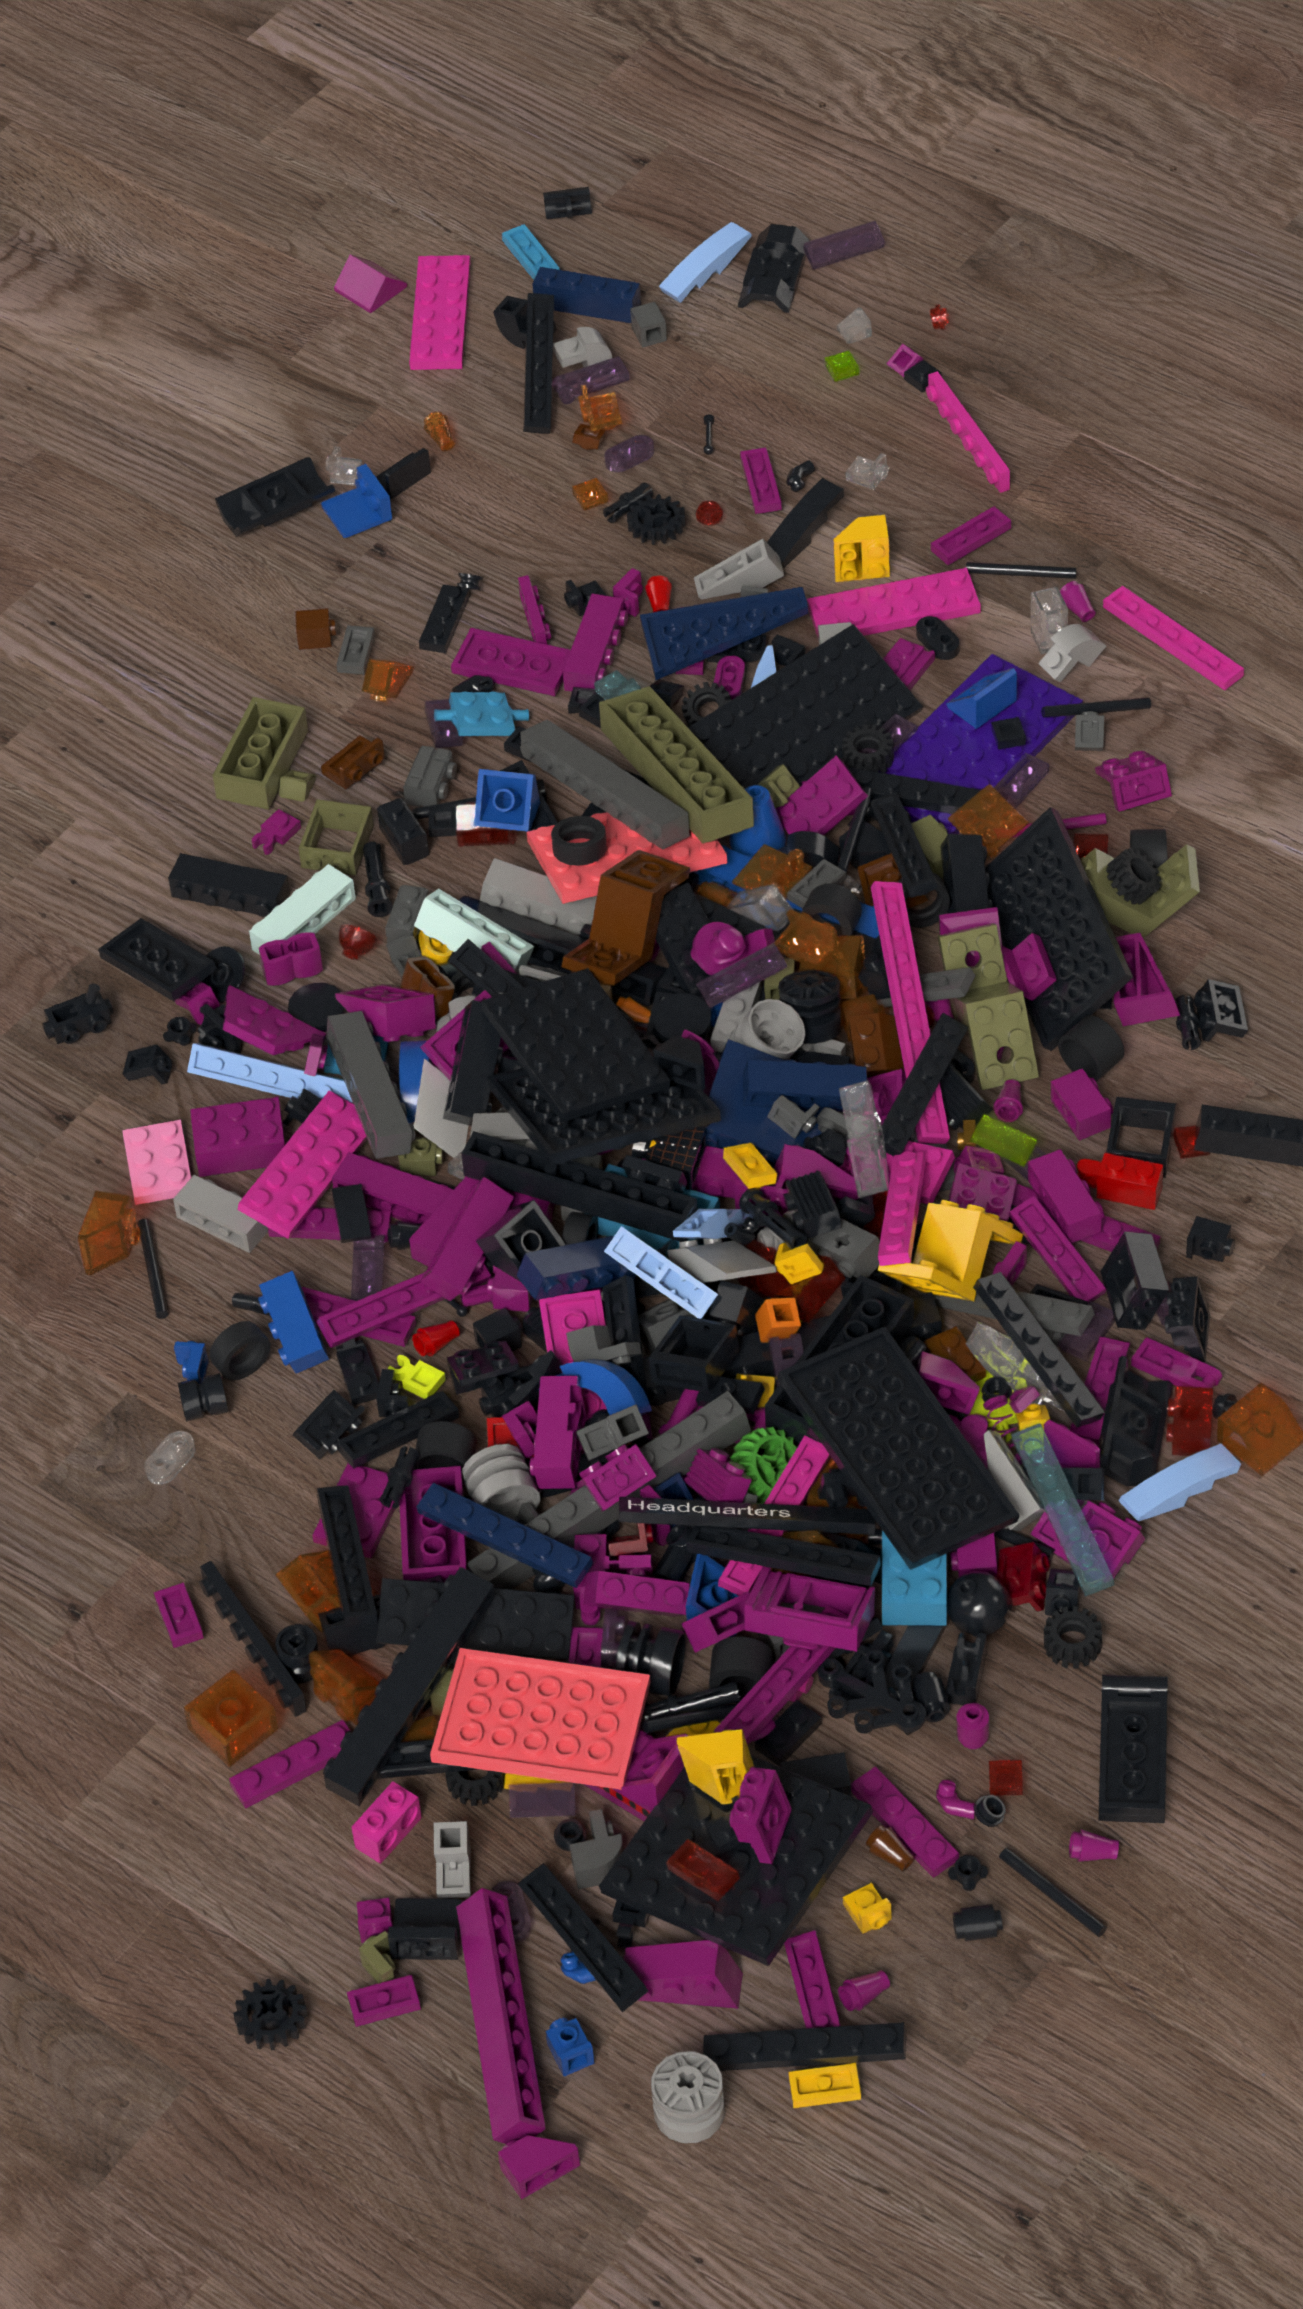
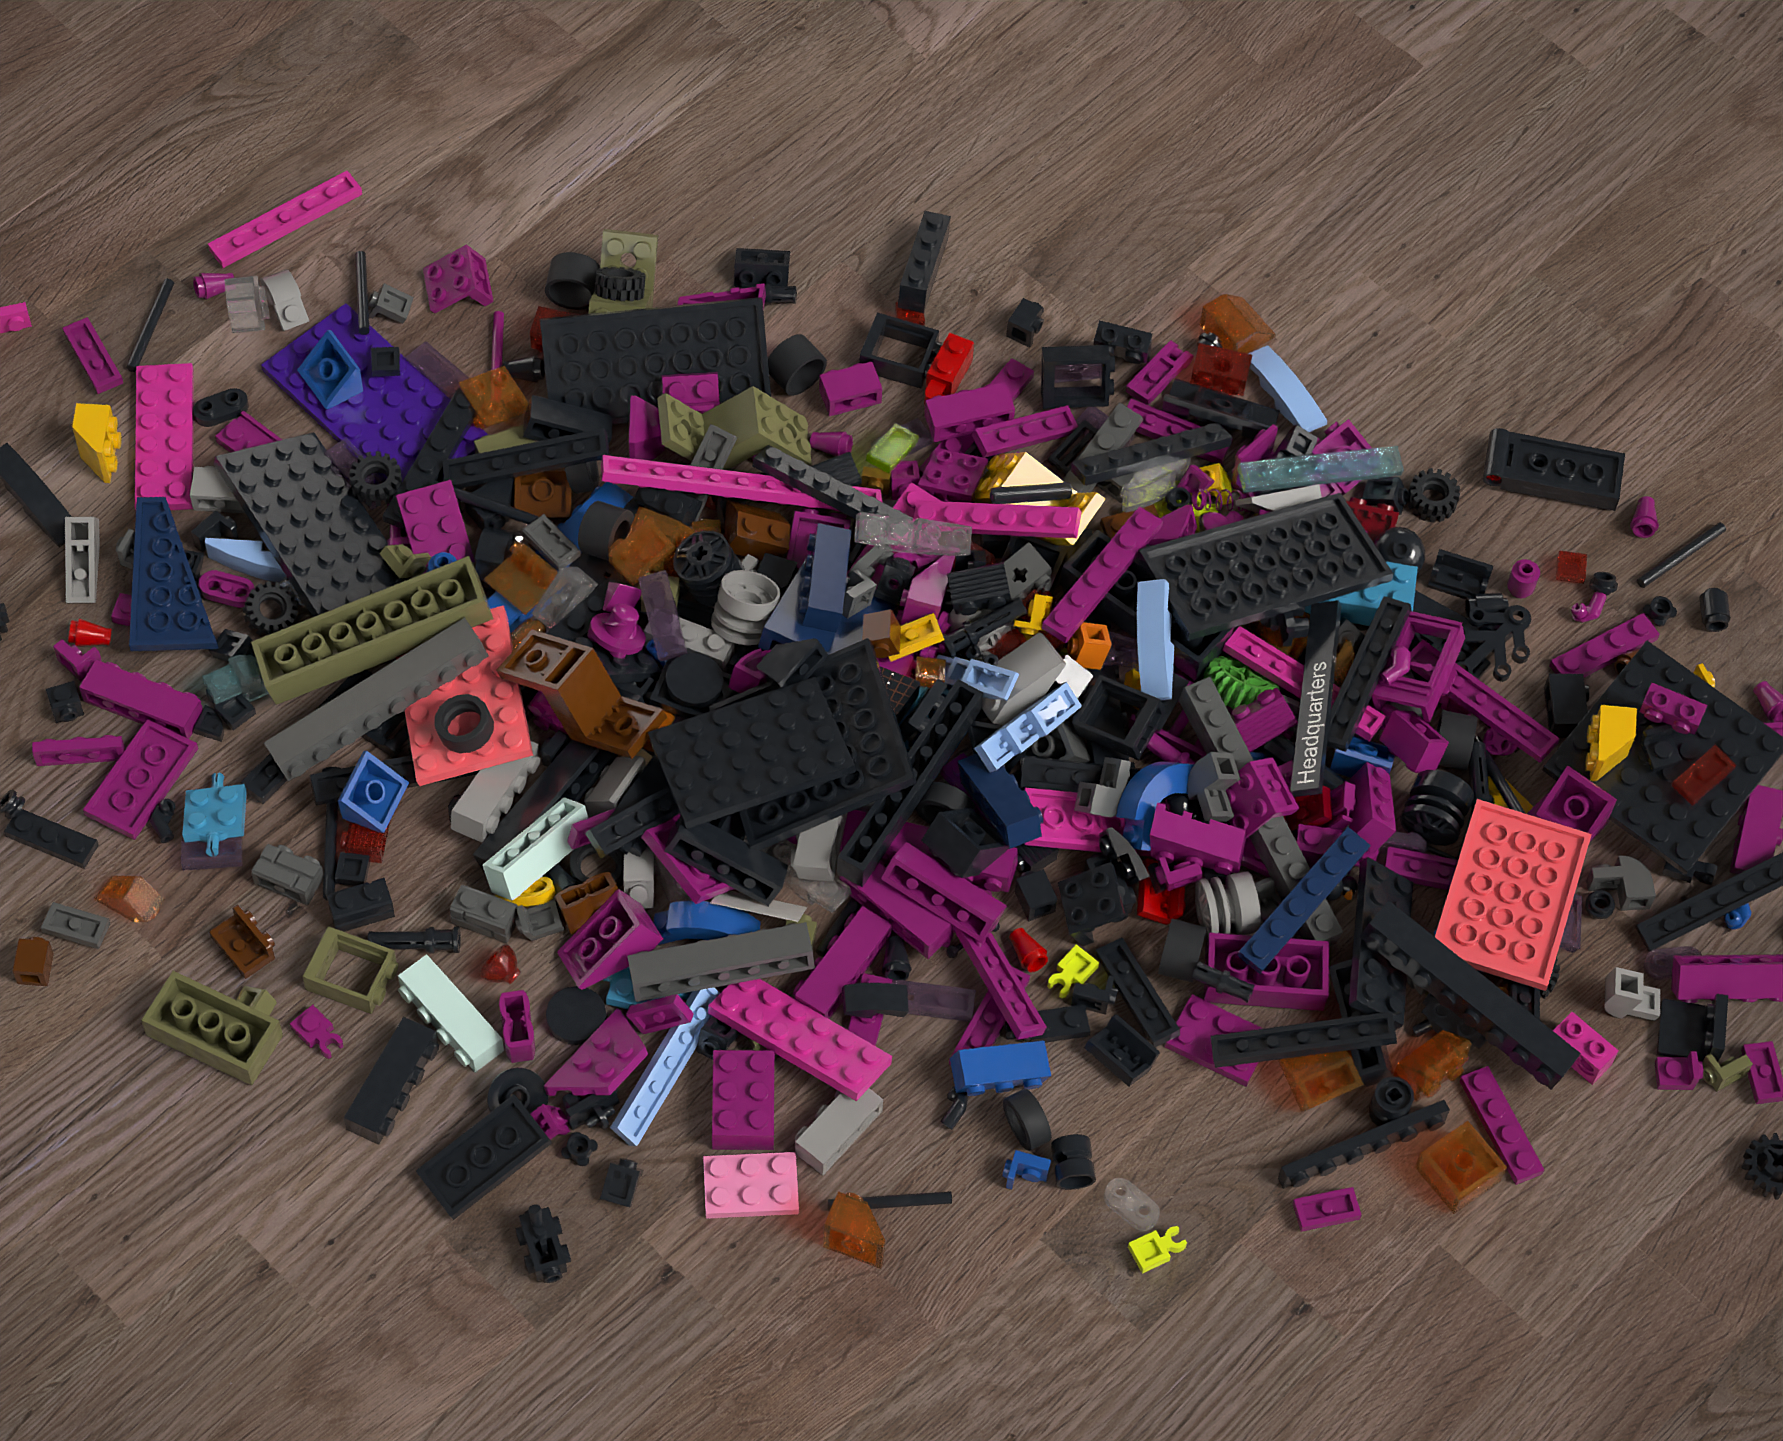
camera: 90 degrees left, 10 degrees up
(120, 1476) = (1153, 1251): none -> neon yellow plate
(718, 1193) = (929, 670): none -> clear orange plate
(738, 1133) = (883, 632): none -> reddish brown brick
(765, 1363) = (1153, 639): none -> light blue slope
(795, 1579) = (1400, 665): none -> magenta arm
(854, 1305) = (1102, 575): none -> magenta plate
(940, 1231) = (1030, 493): none -> black axle

